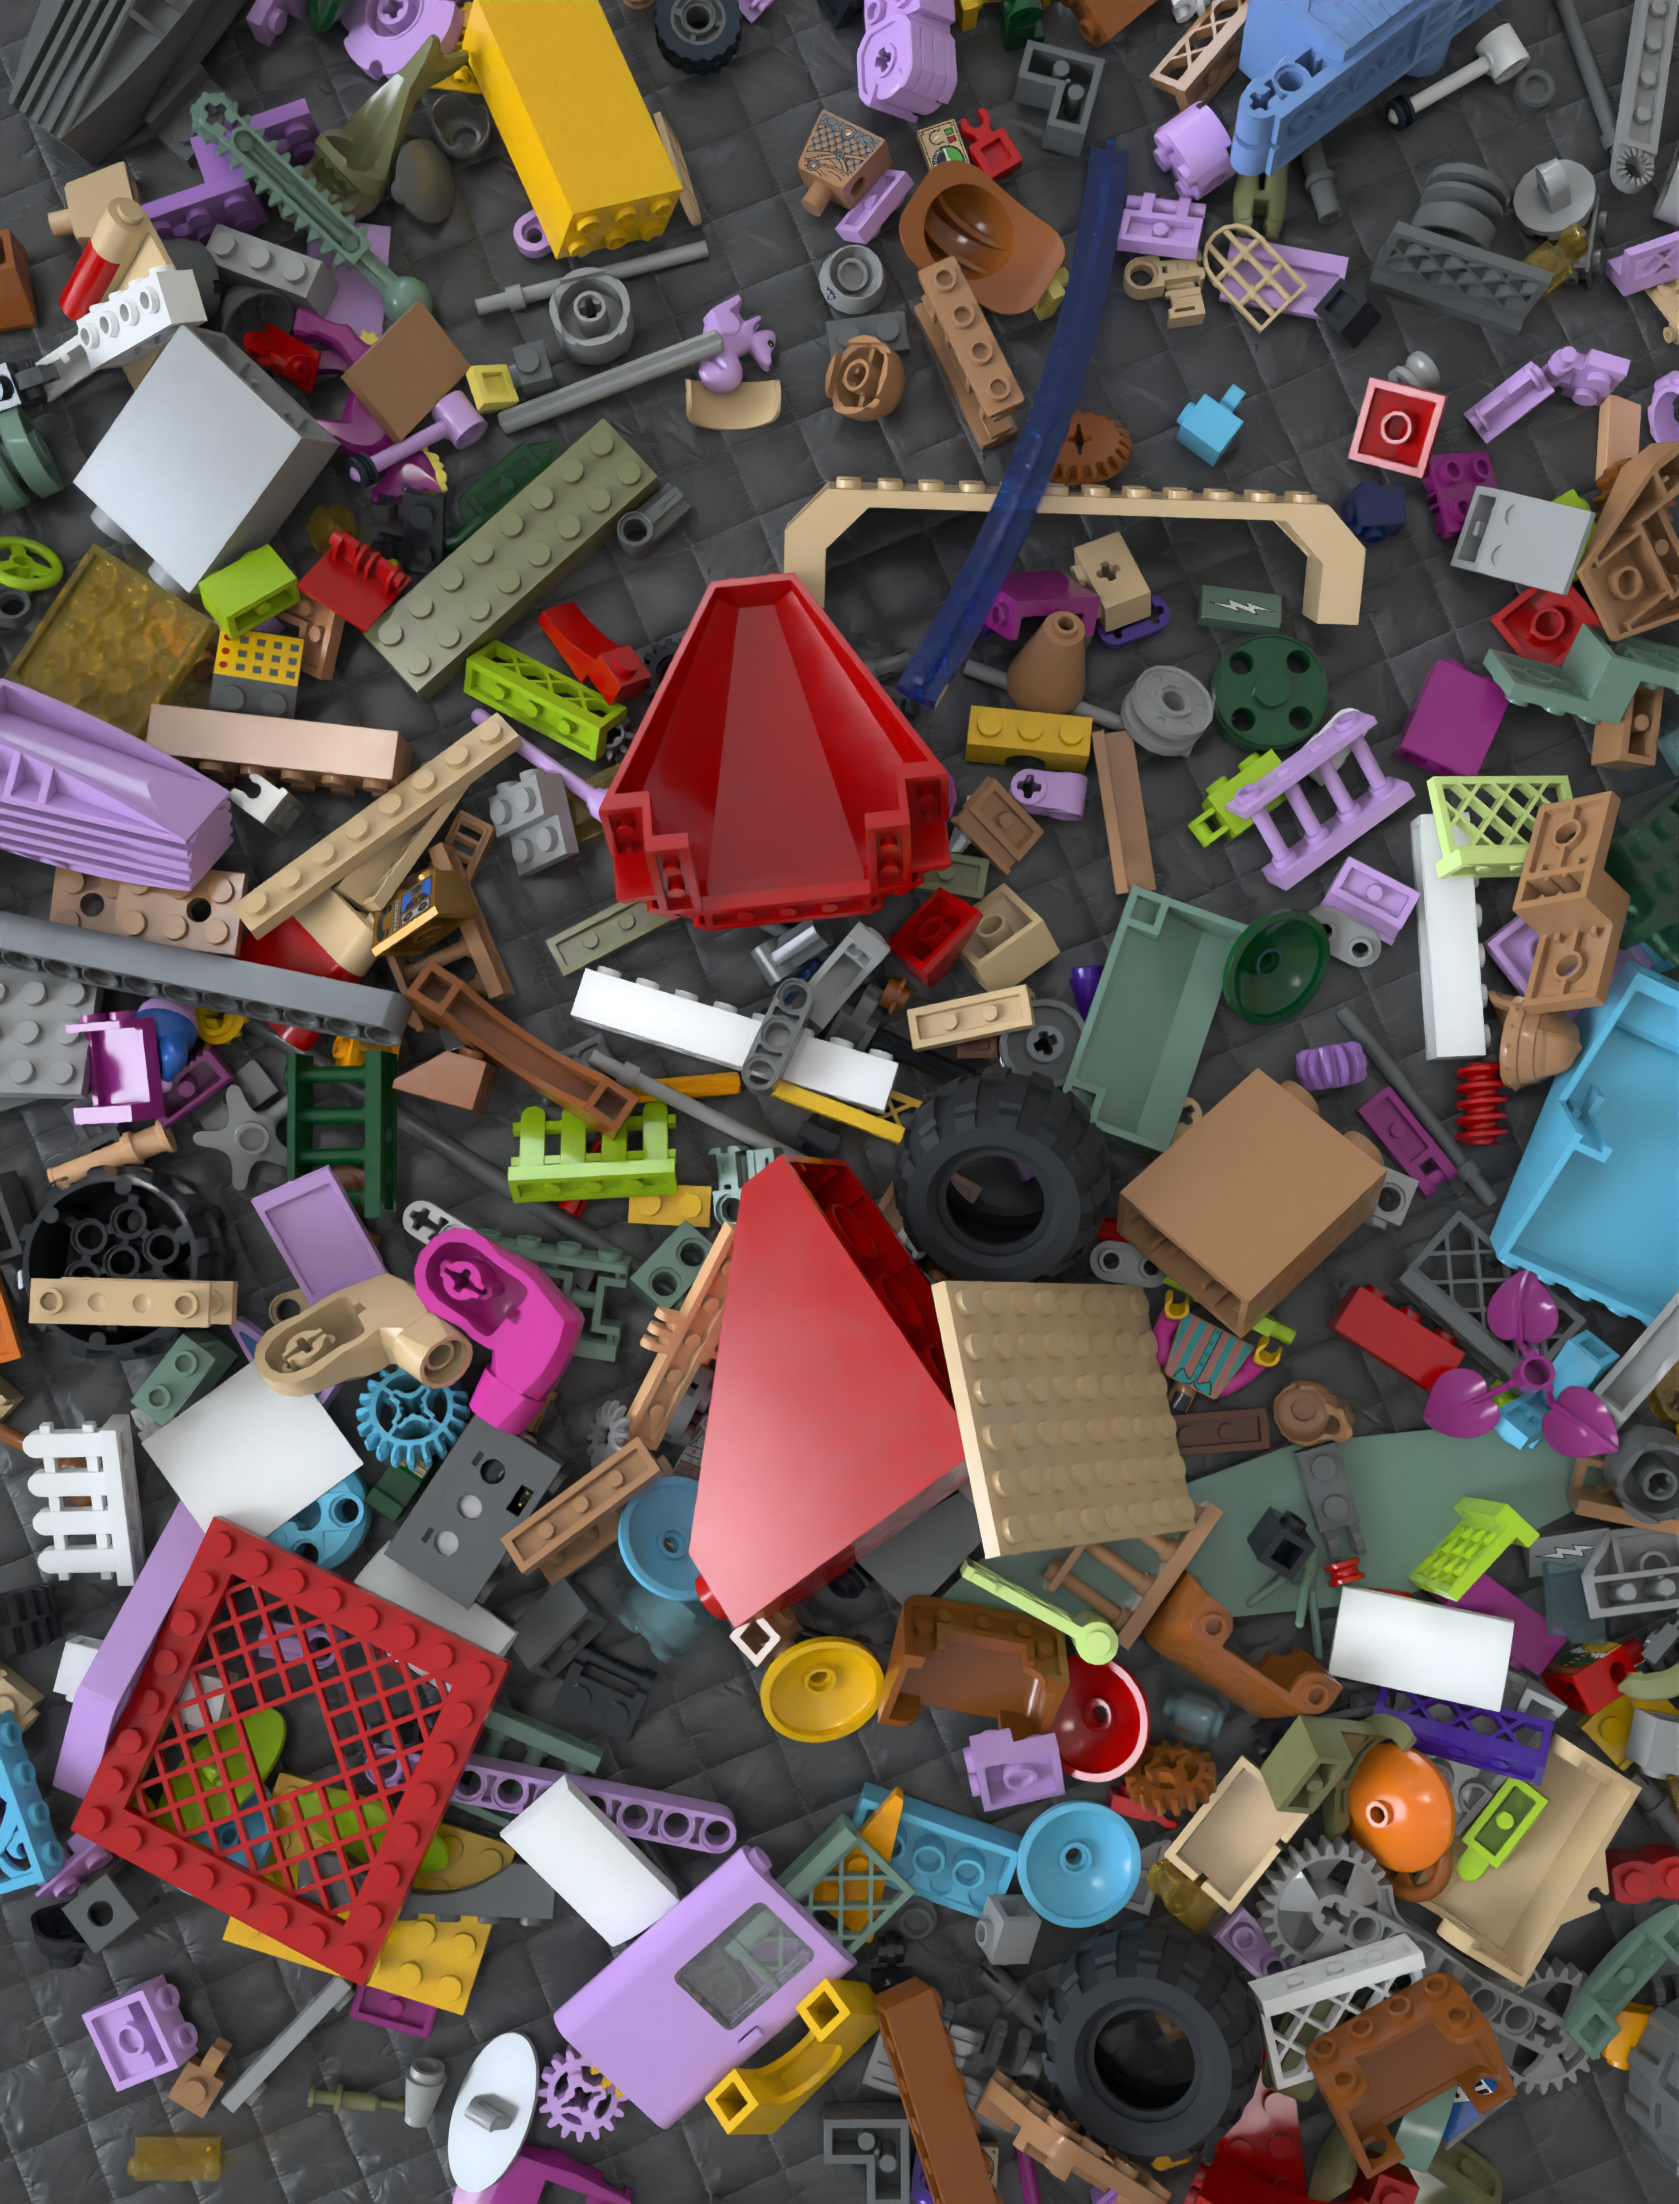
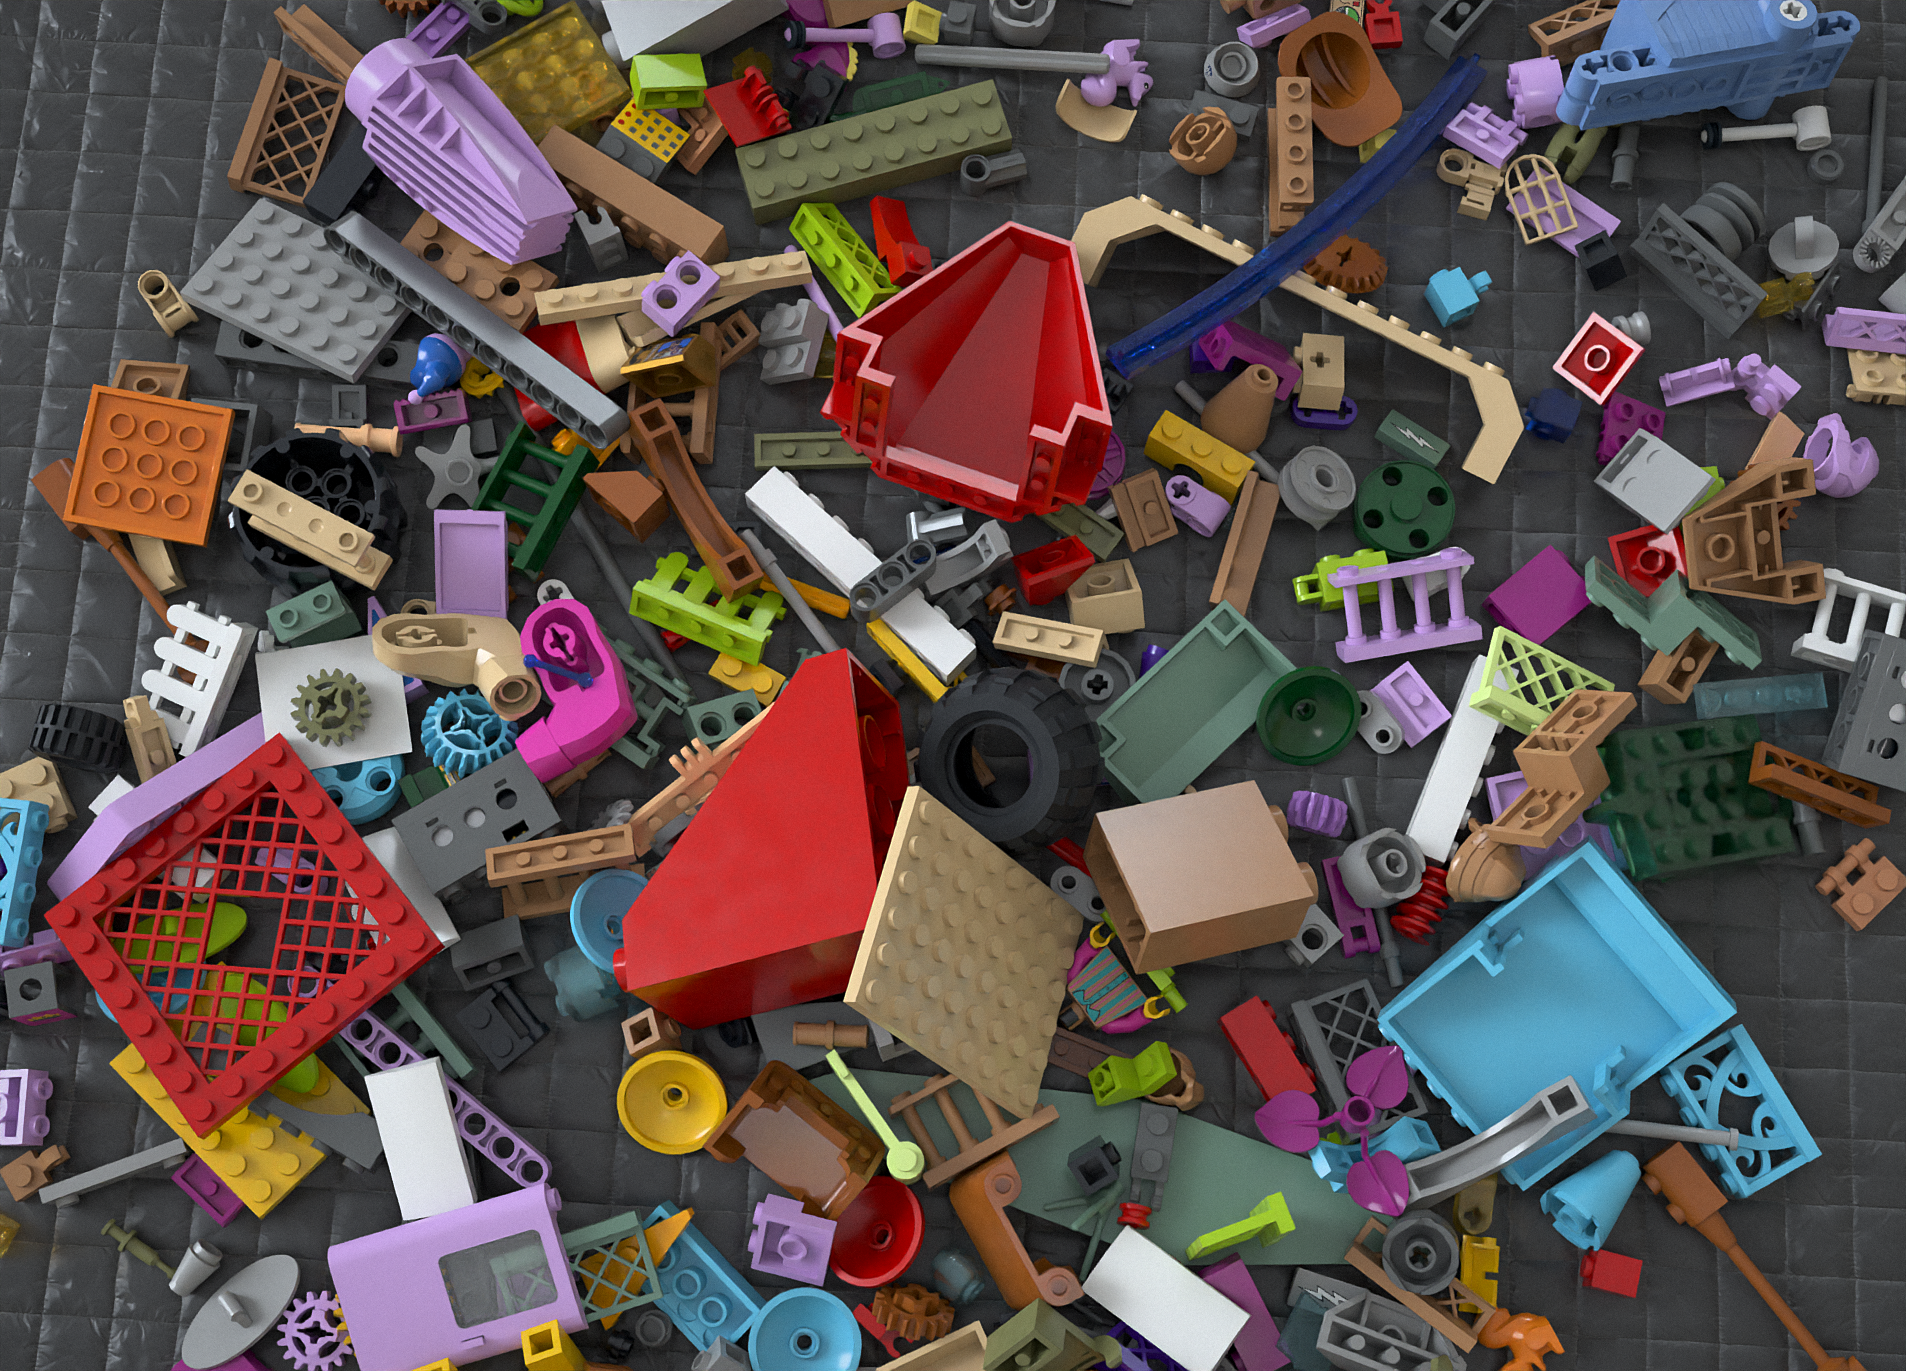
camera: 30 degrees right, 10 degrees down
(79, 1590) = (147, 738): none -> tan hinge
(122, 1068) = (392, 370): panel -> none
(254, 1447) = (337, 695): none -> olive gear
(401, 835) = (688, 298): none -> lavender brick
(511, 1311) = (583, 679): none -> clear blue hinge
(945, 1547) = (830, 1035): none -> medium nougat pin
(1275, 1432) = (1125, 1078): none -> lime slope
(1427, 1093) = (1382, 868): none -> light grey brick

